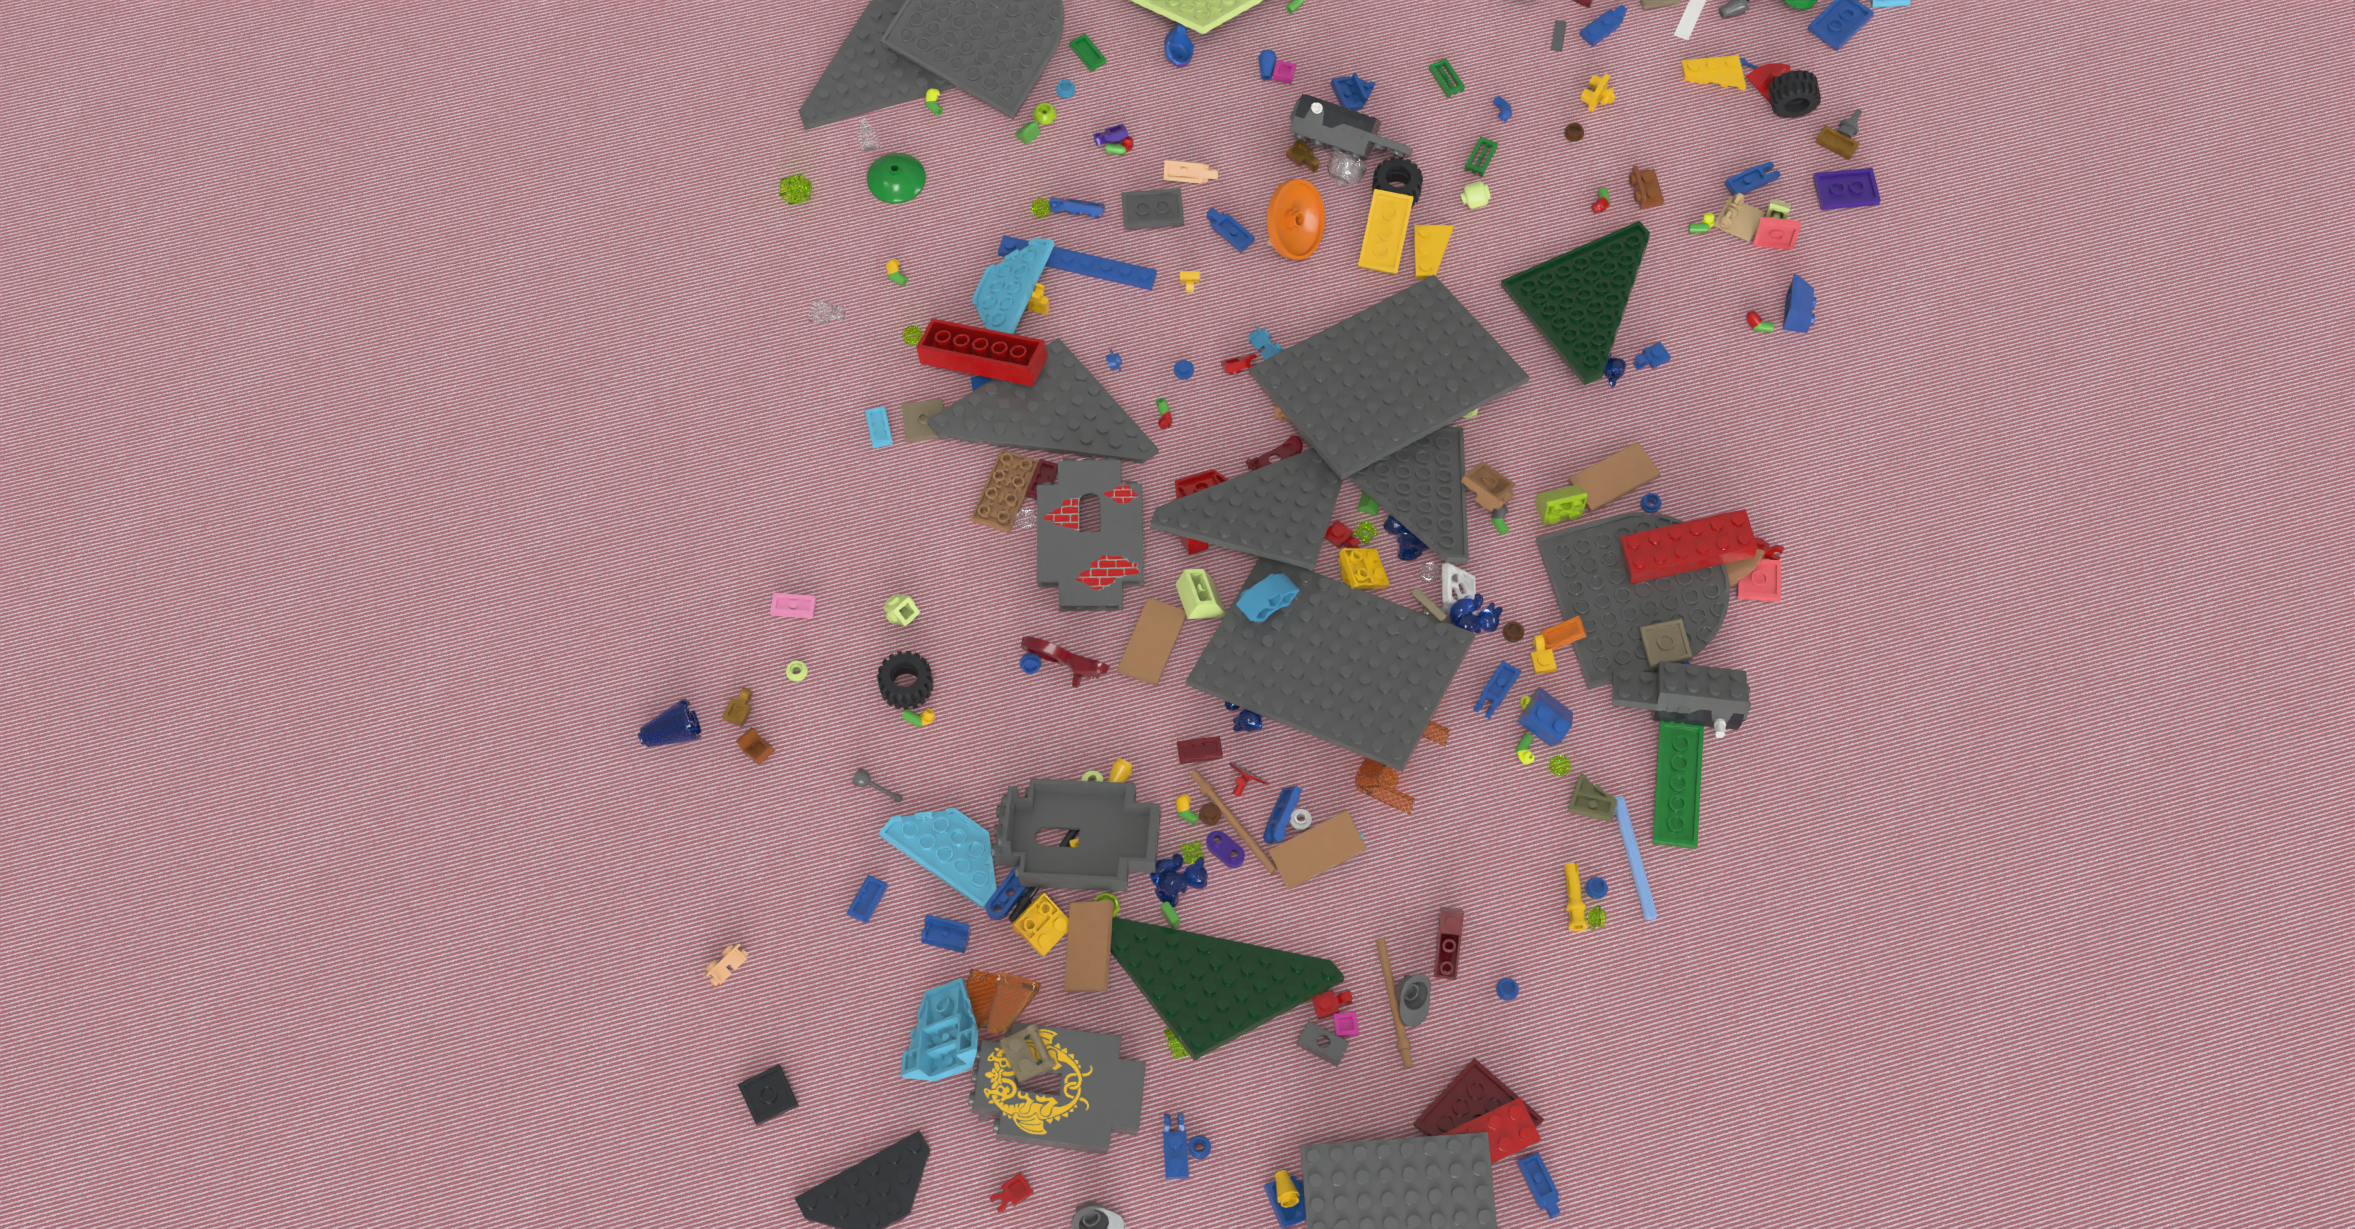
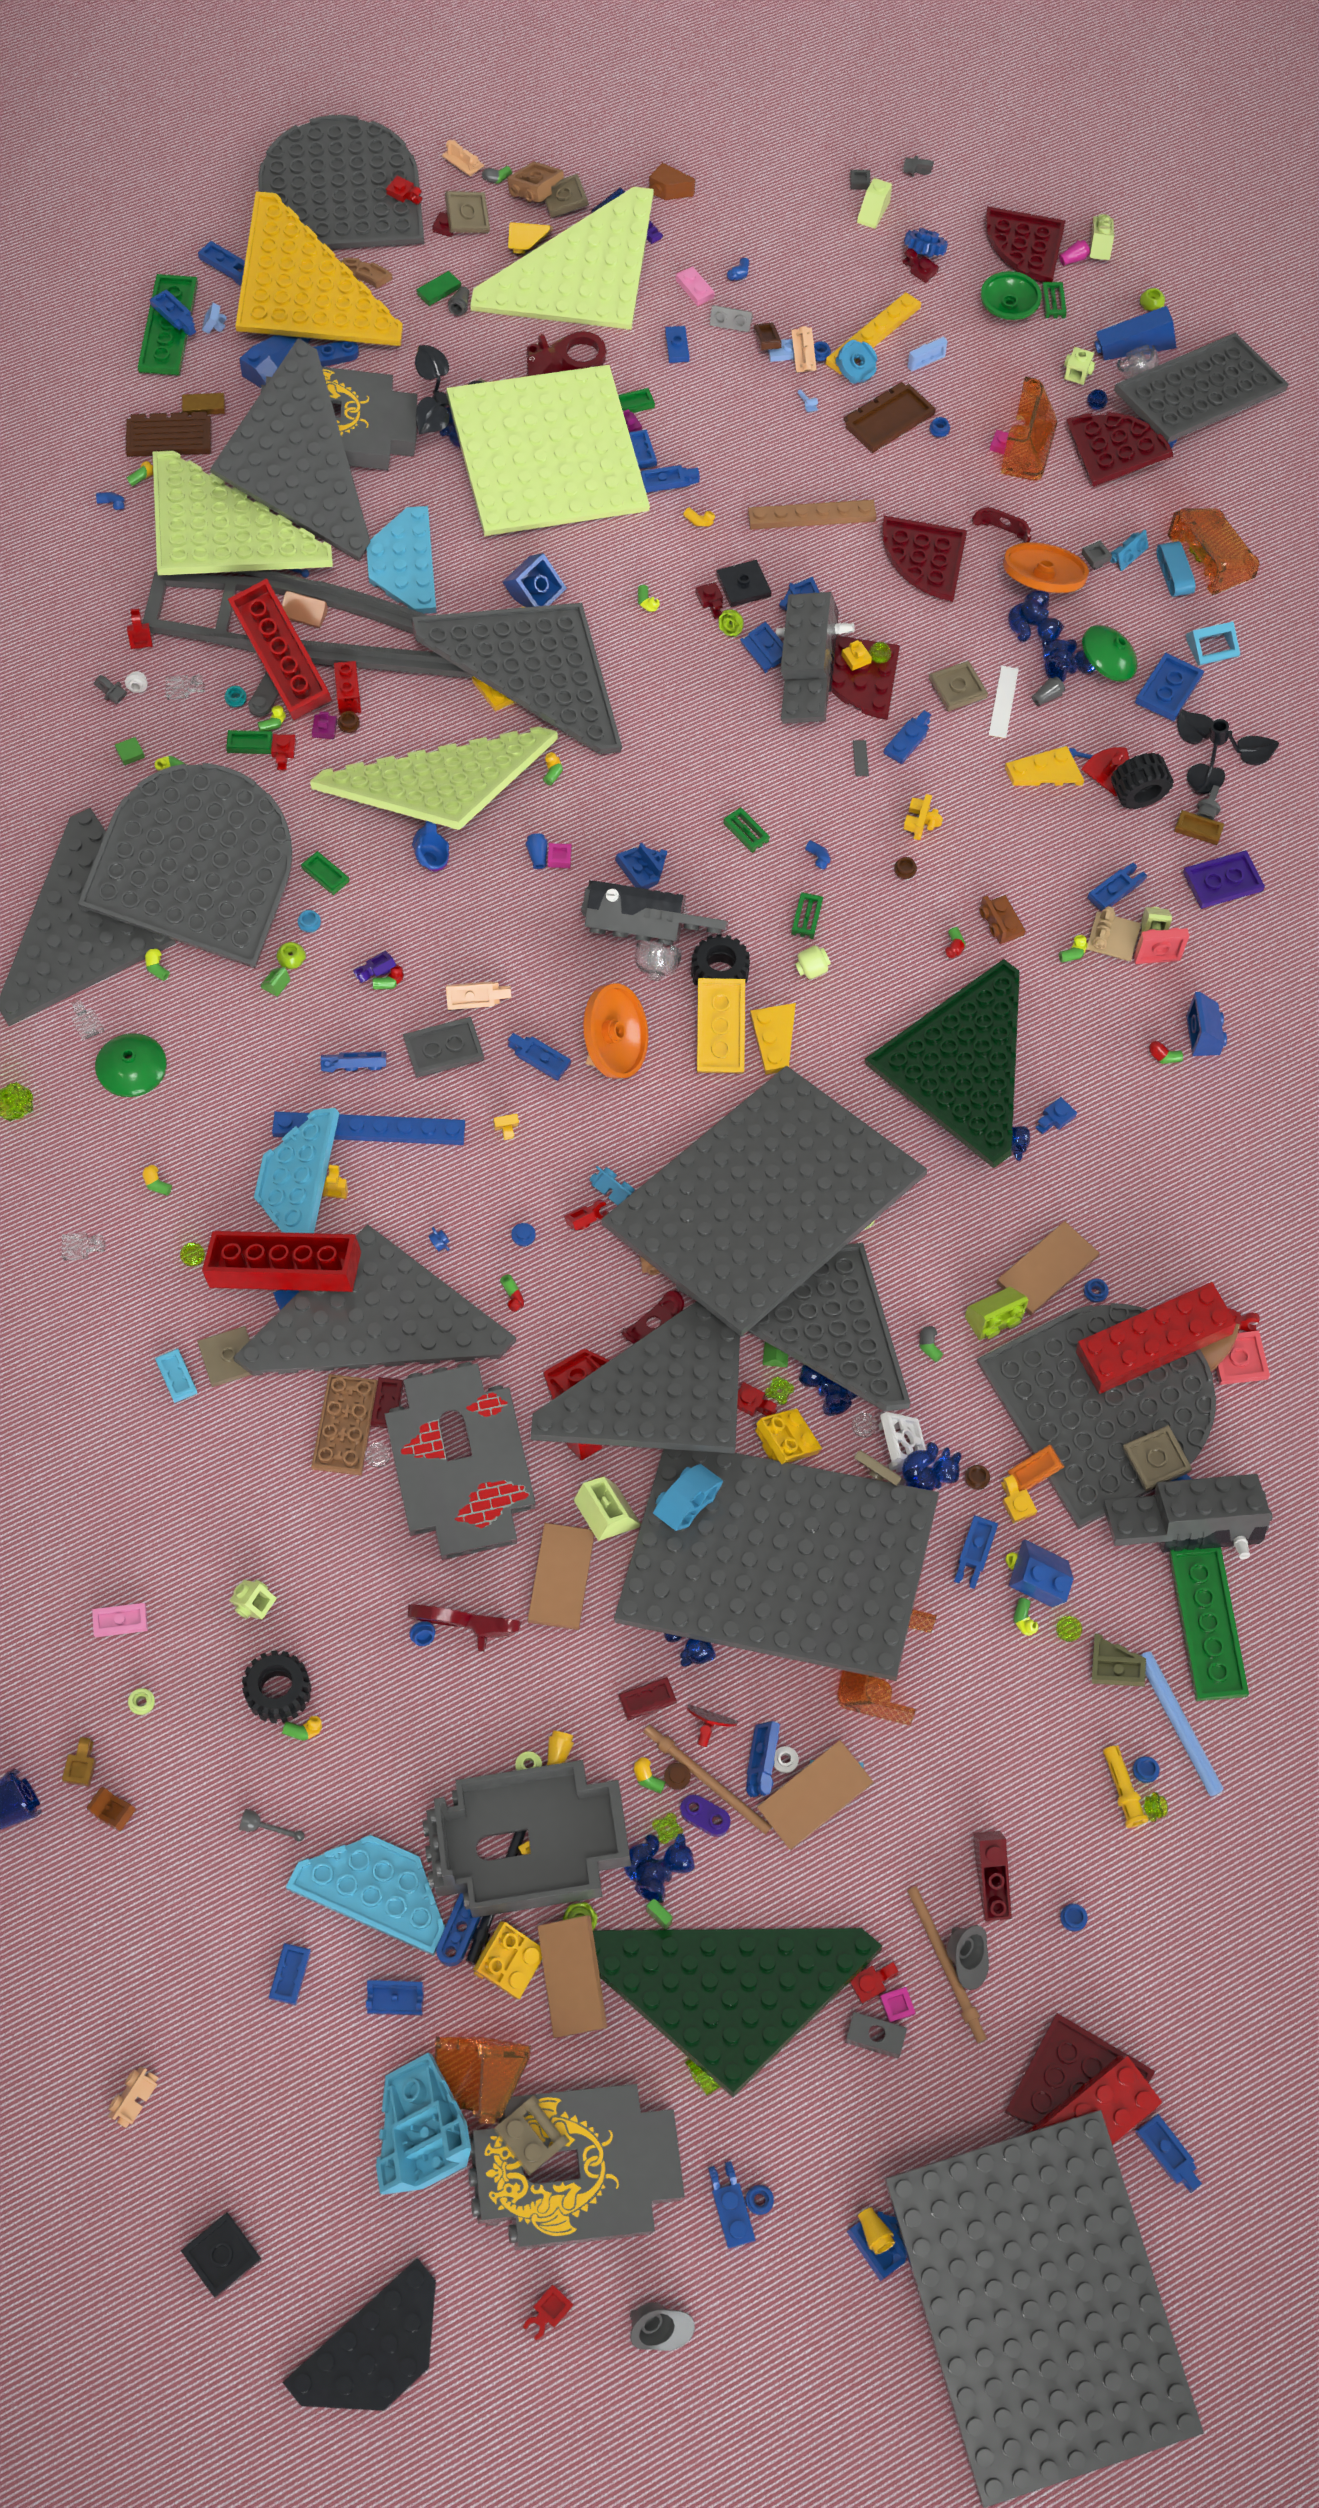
camera: 15 degrees left, 0 degrees up
(1040, 207) = (311, 1070): clear neon green plate -> none
(1301, 154) = (602, 949): pearl gold plate -> none
(1491, 486) = (910, 1306): medium nougat plate -> none
(1855, 58) = (1195, 727): none -> black plant

